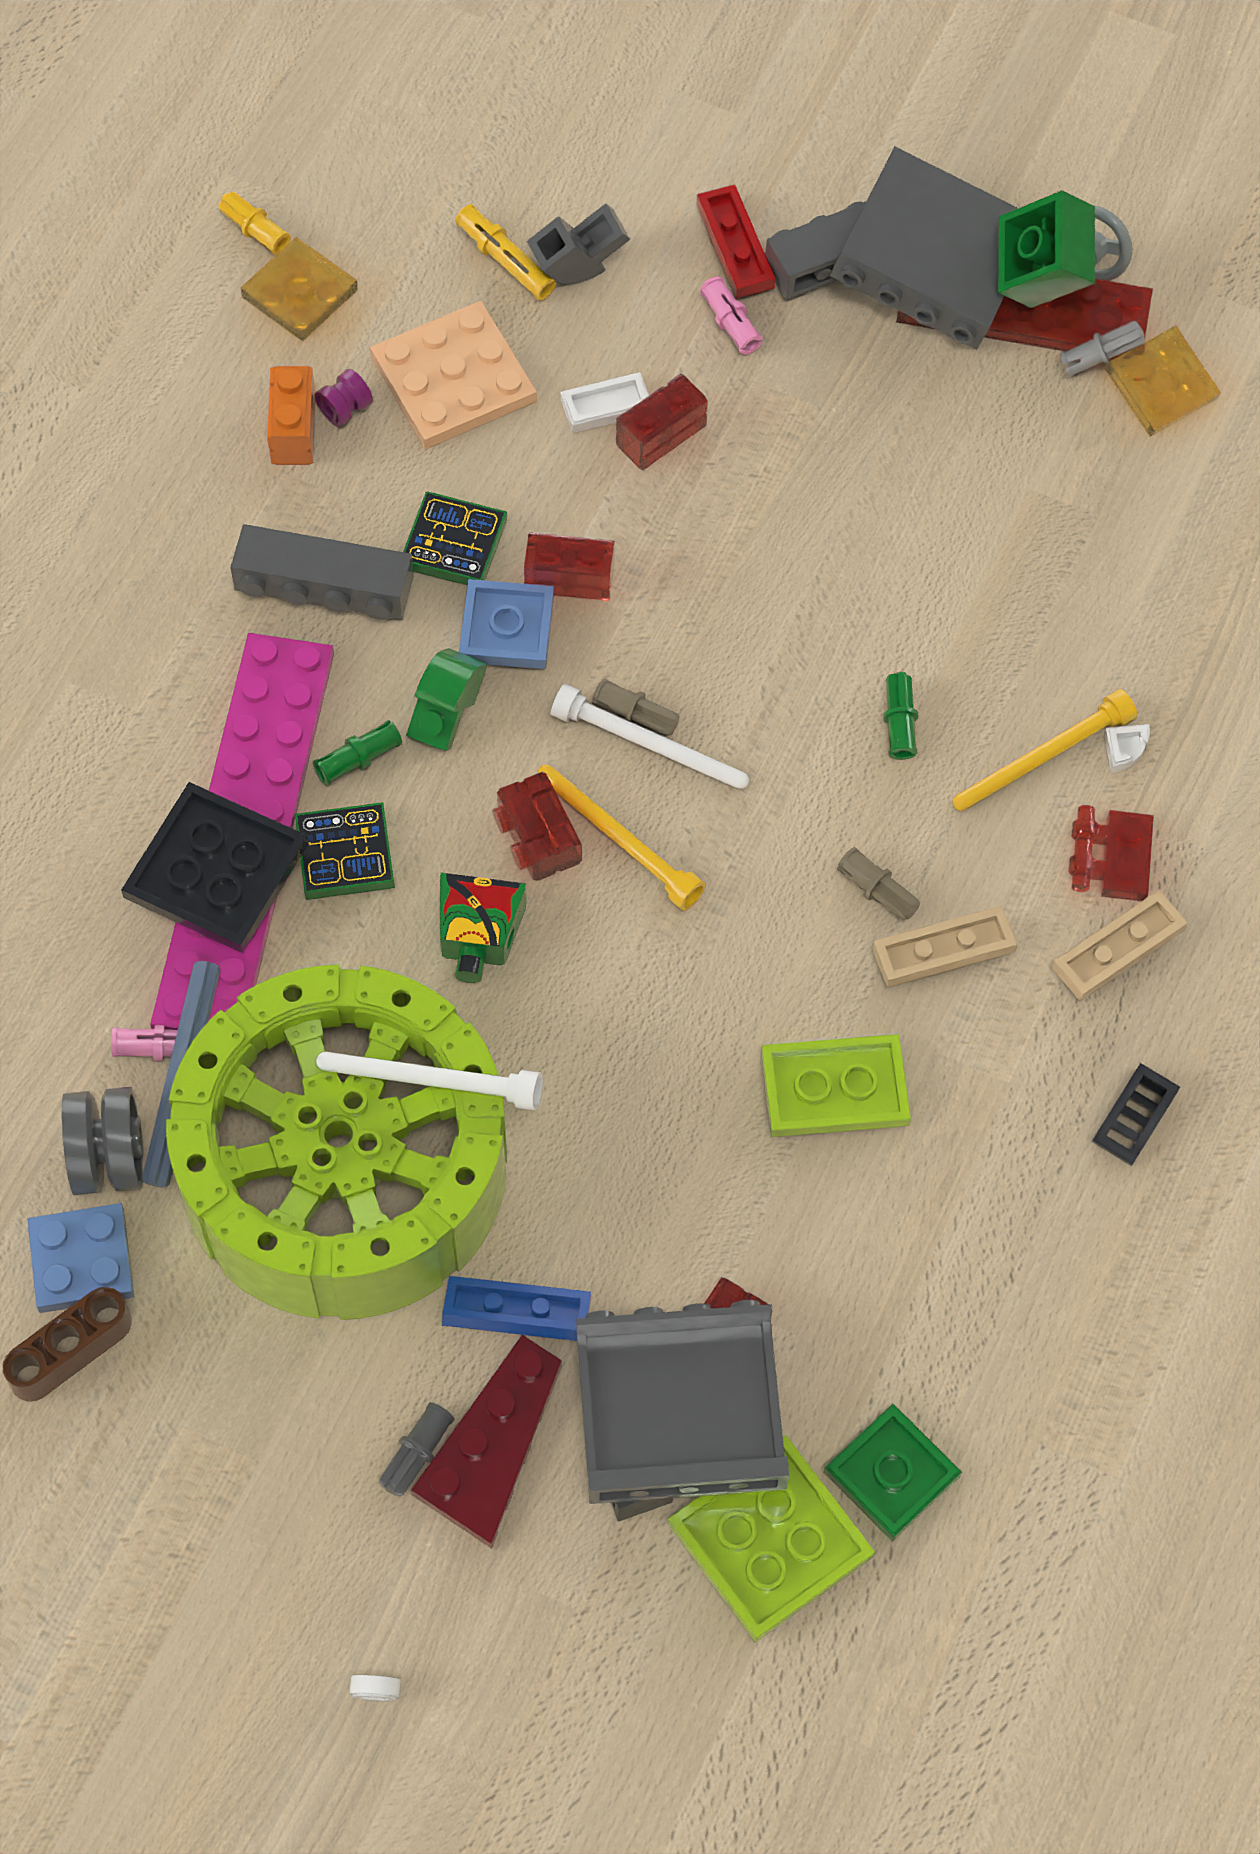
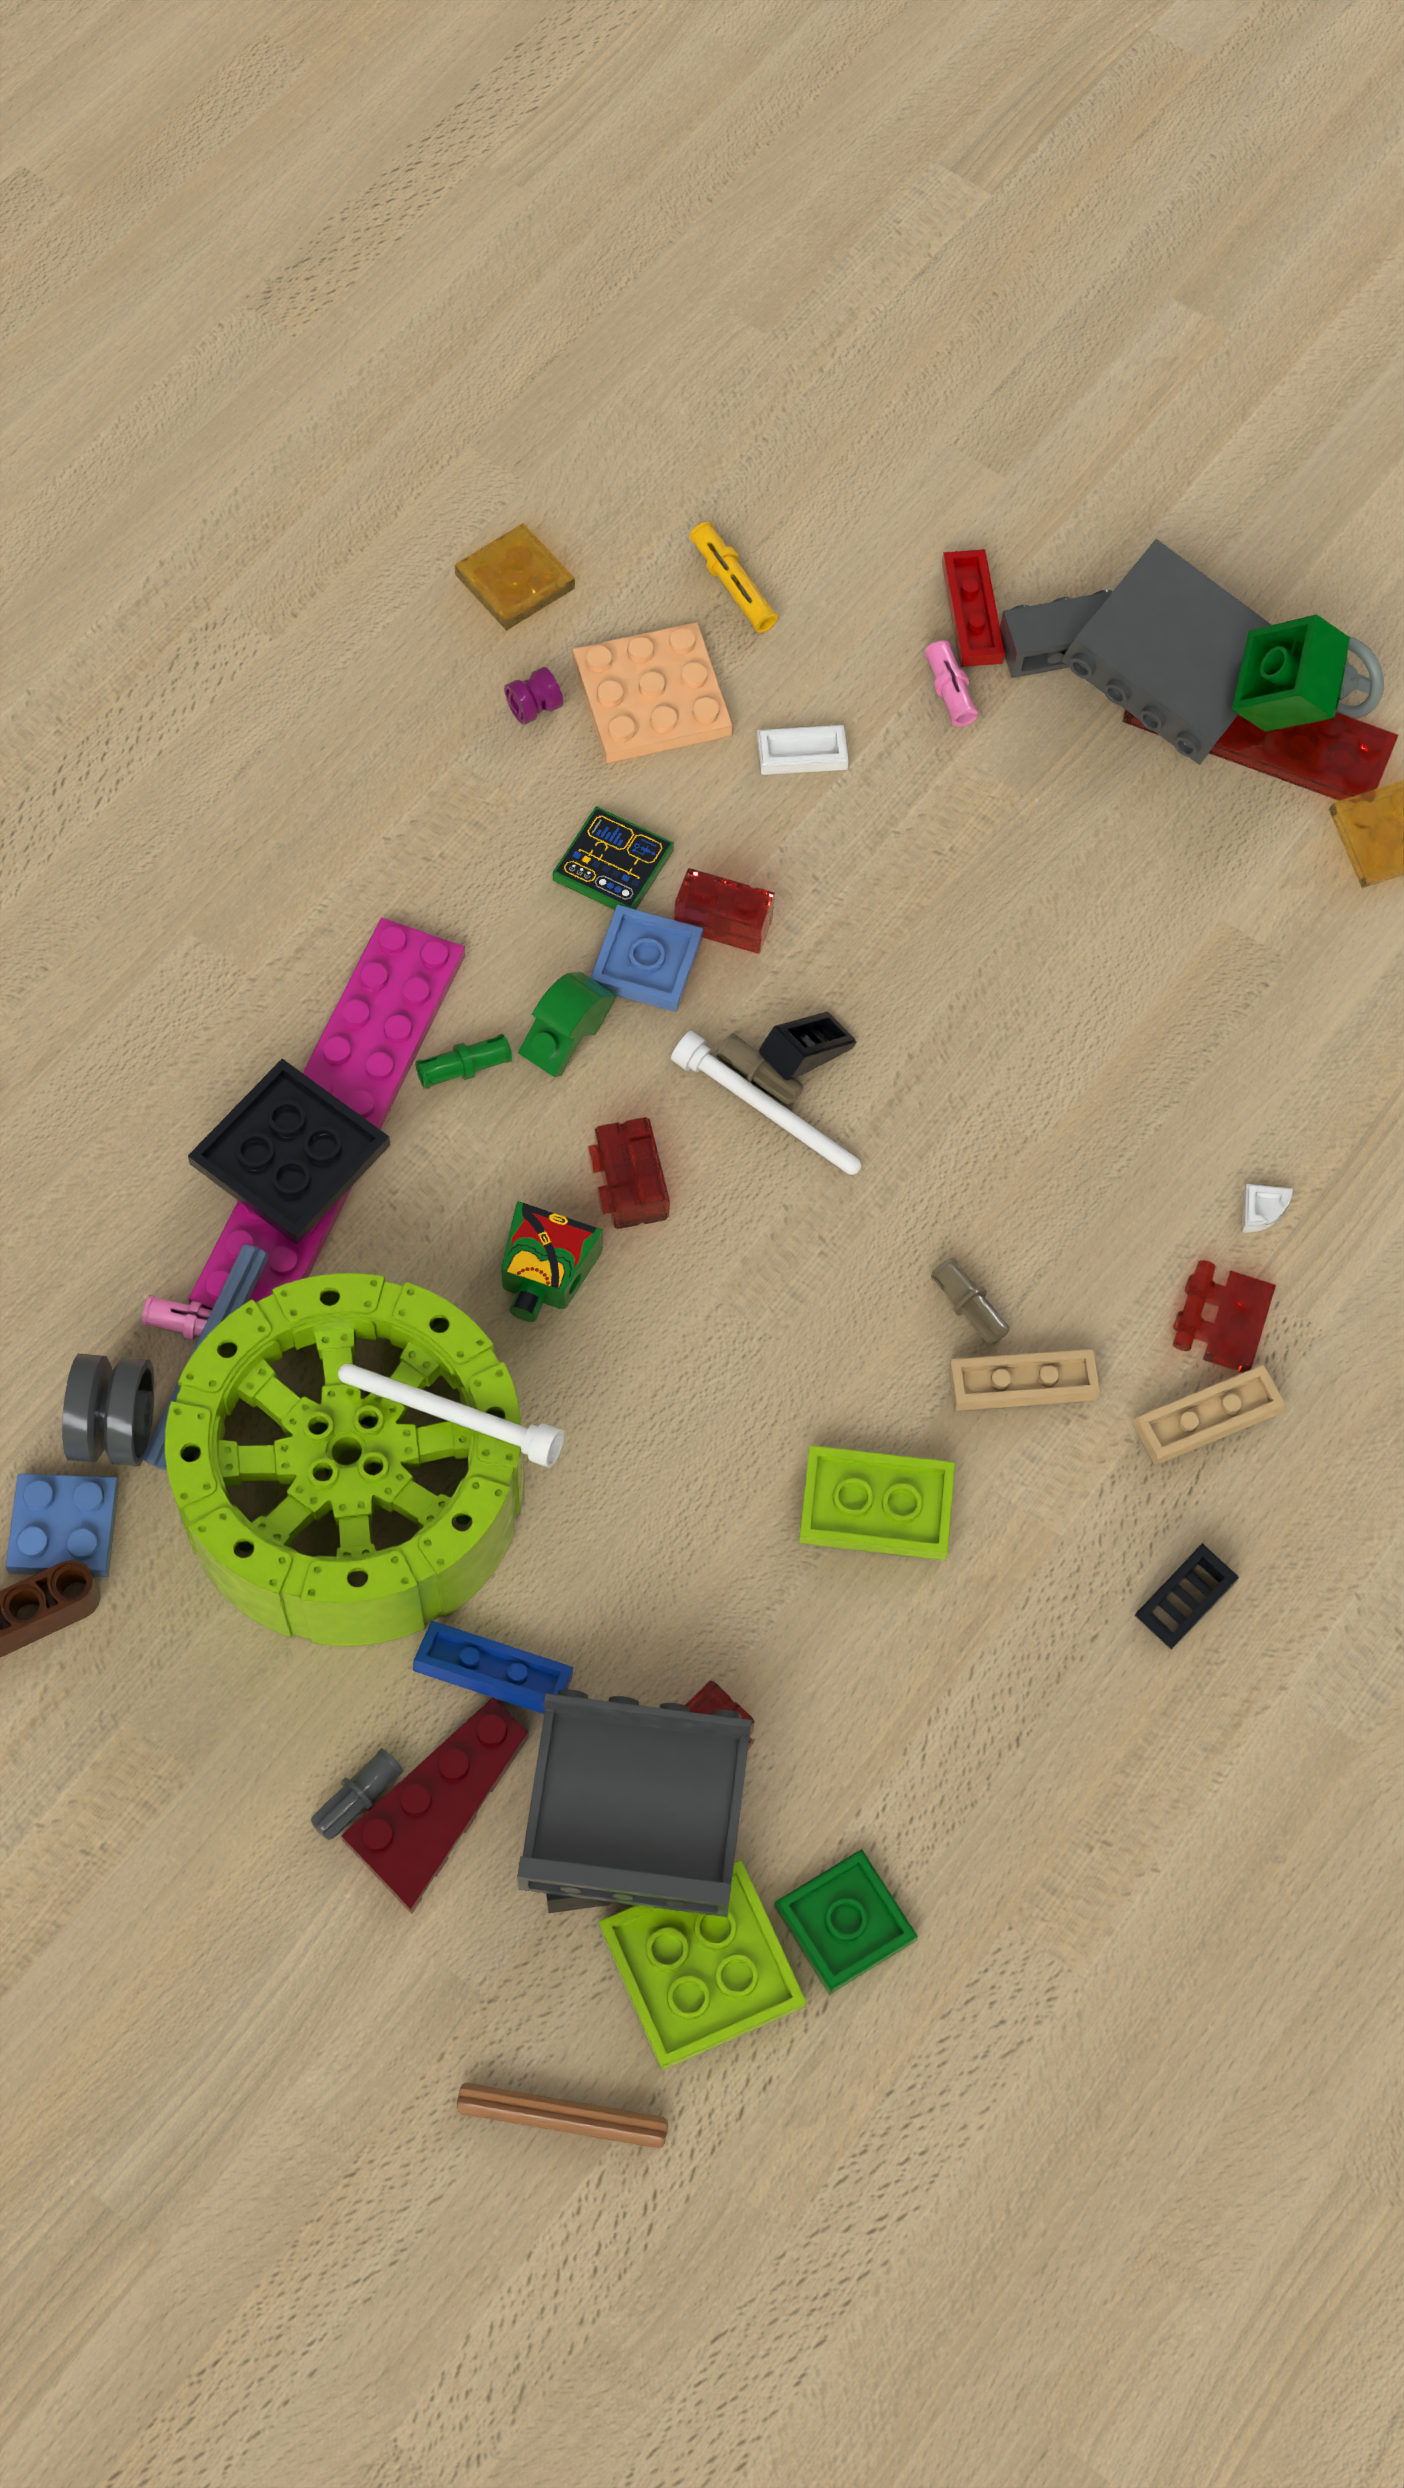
camera: 10 degrees right, 0 degrees up
(254, 222) = (484, 501): yellow axle -> none
(291, 415) = (476, 704): orange brick -> none
(322, 572) = (469, 869): dark grey brick -> none
(345, 851) = (428, 1160): black tile -> none
(375, 1688) = (255, 2034): white tile -> none
(578, 252) = (806, 590): dark grey brick -> none
(661, 421) = (853, 779): clear red brick -> none
(673, 676) = (803, 1044): none -> black slope
(674, 1701) = (562, 2115): none -> medium nougat axle
(682, 887) = (765, 1264): yellow piece -> none
(900, 716) = (1033, 1131): green axle -> none
(1103, 348) = (1331, 787): light grey axle -> none
(1114, 711) = (1259, 1168): yellow piece -> none

